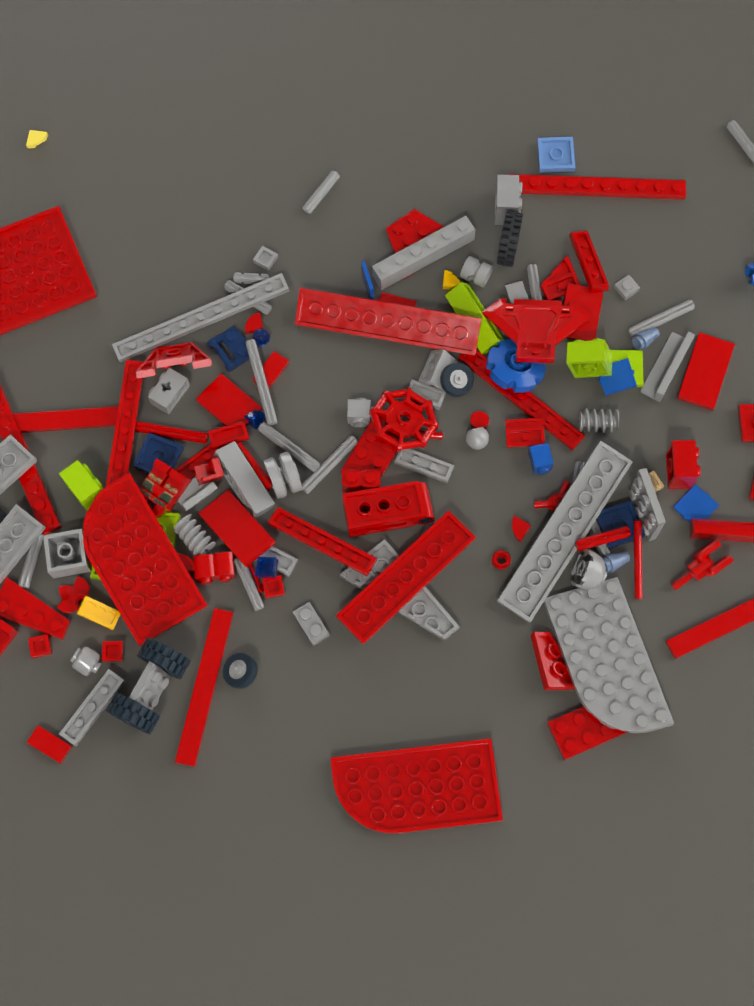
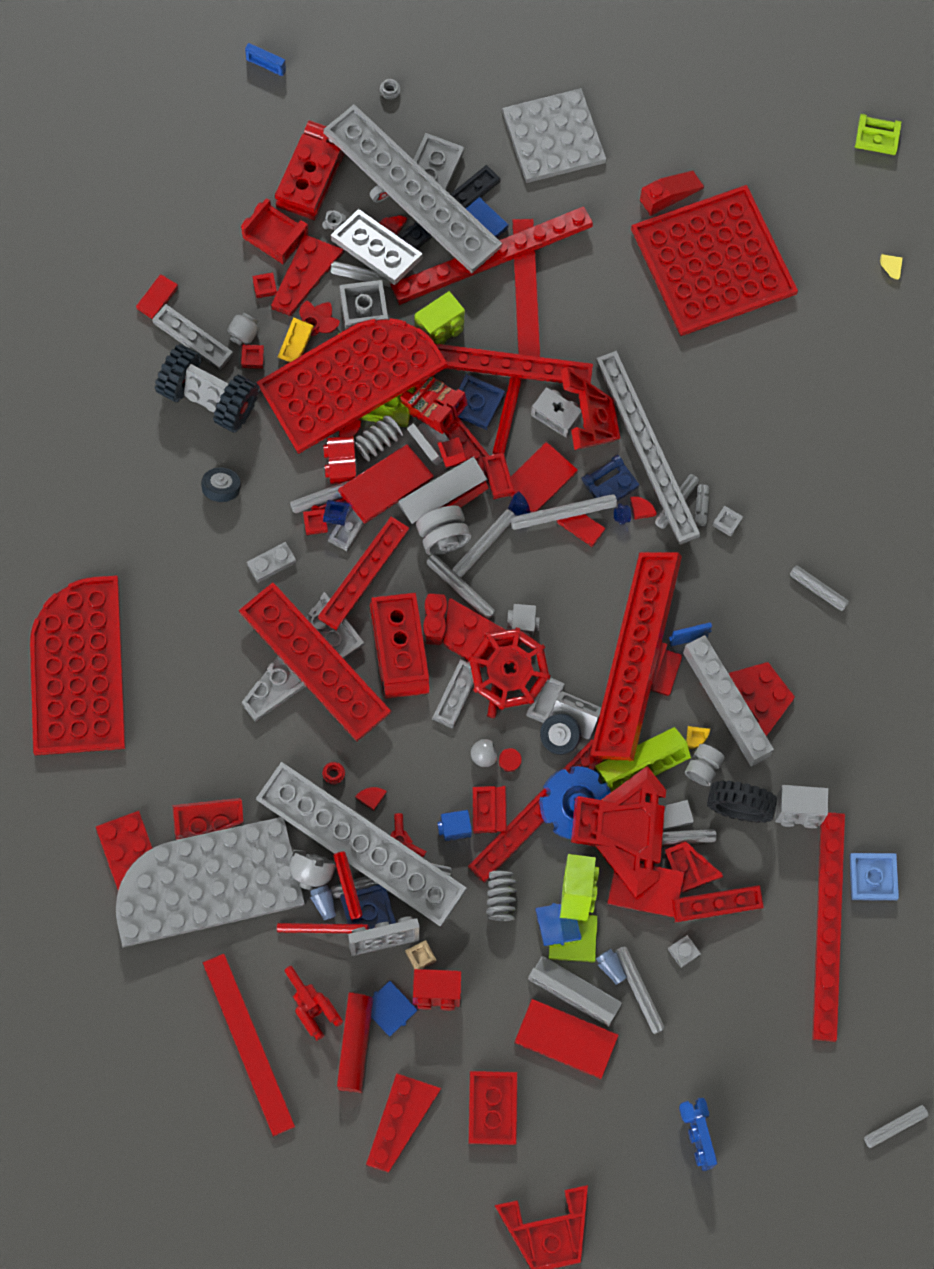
camera: 85 degrees right, 0 degrees up
(204, 688) = (208, 450): red tile -> none

